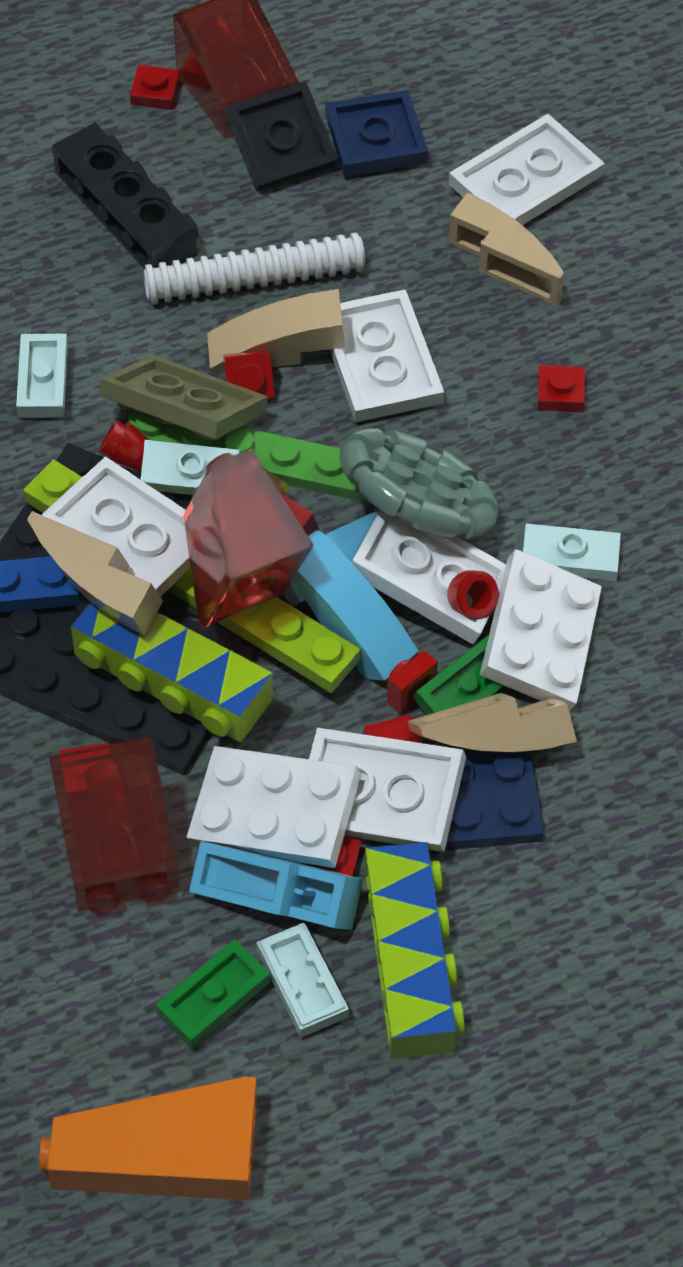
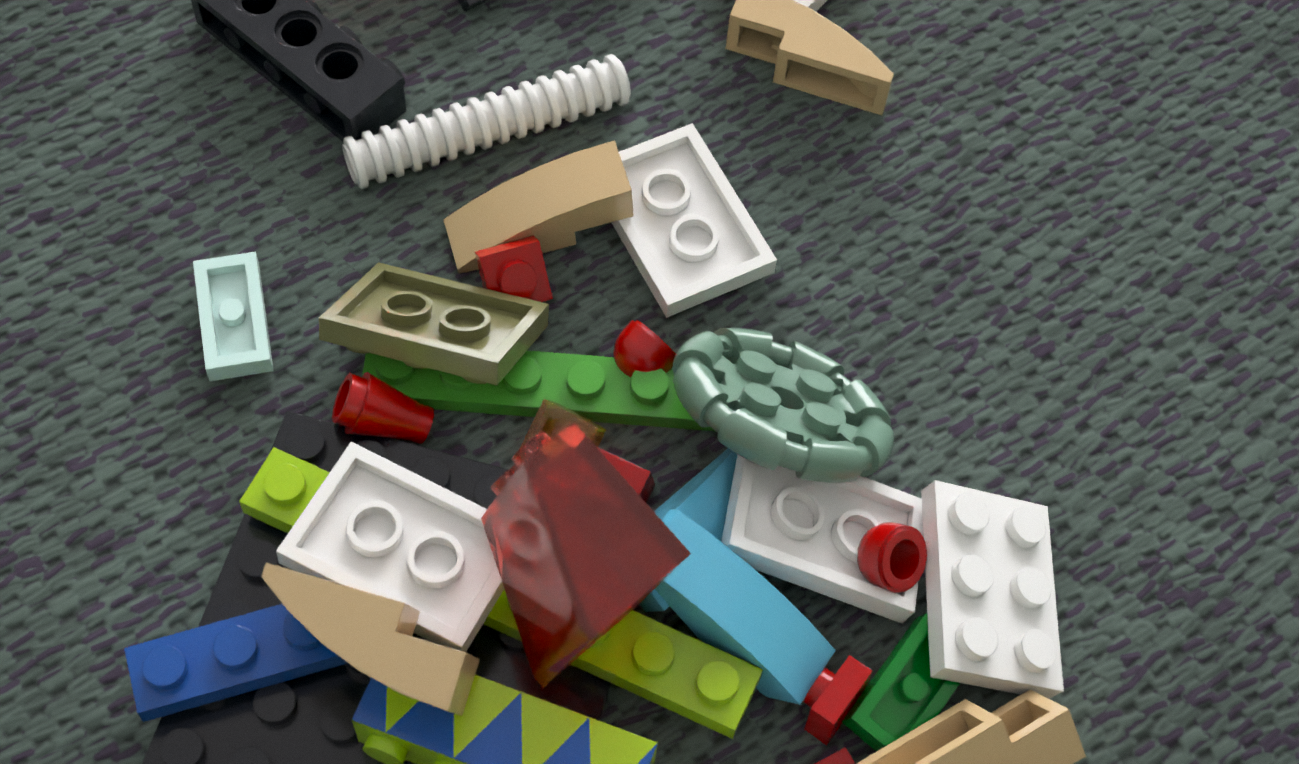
camera: 15 degrees left, 5 degrees up
(176, 465) = (463, 429): light aqua plate -> none
(327, 437) = (641, 350): none -> red piece
(560, 388) = (919, 229): red plate -> none
(575, 550) = (995, 459): light aqua plate -> none

